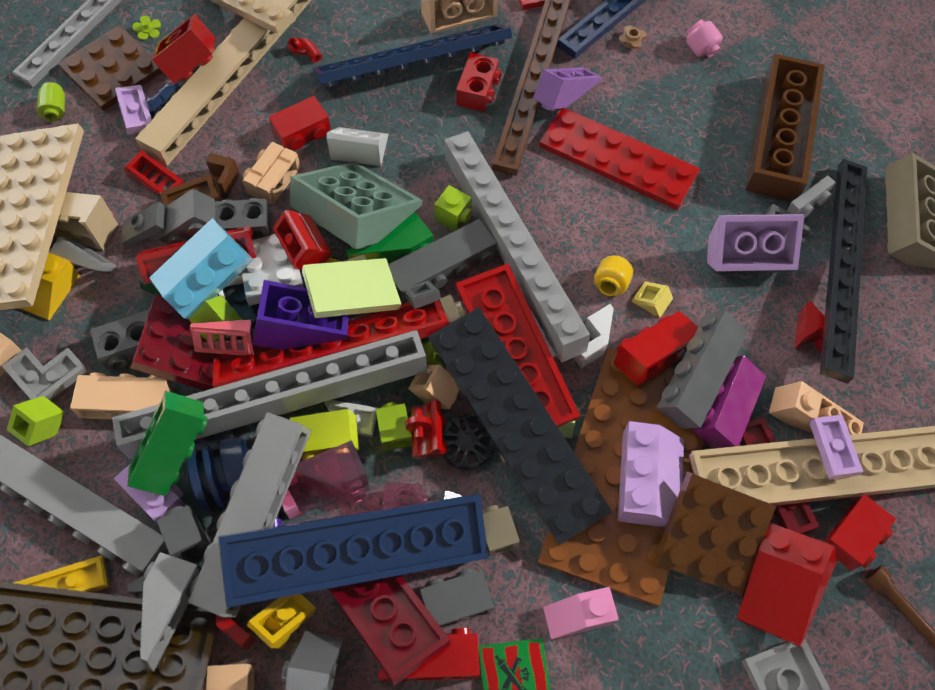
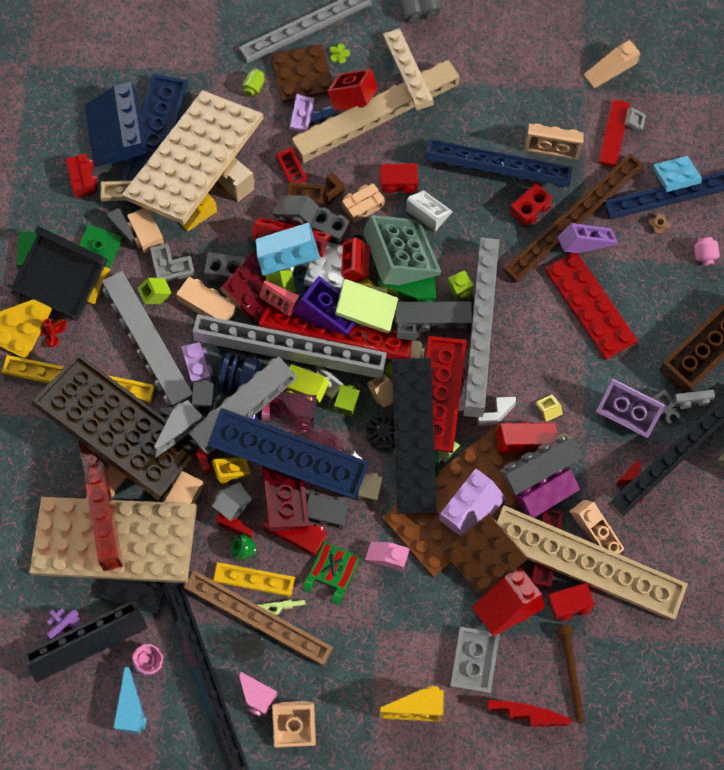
camera: 30 degrees right, 5 degrees up
(81, 255) = (224, 201): light grey slope -> none
(143, 224) = (269, 199): dark grey plate -> none
(166, 444) = (218, 344): green brick -> none
(304, 47) = (434, 120): red arm -> none
(426, 430) = (363, 410): red hips -> none
(613, 276) = (532, 380): yellow head -> none
(835, 447) = (587, 548): lavender plate -> none

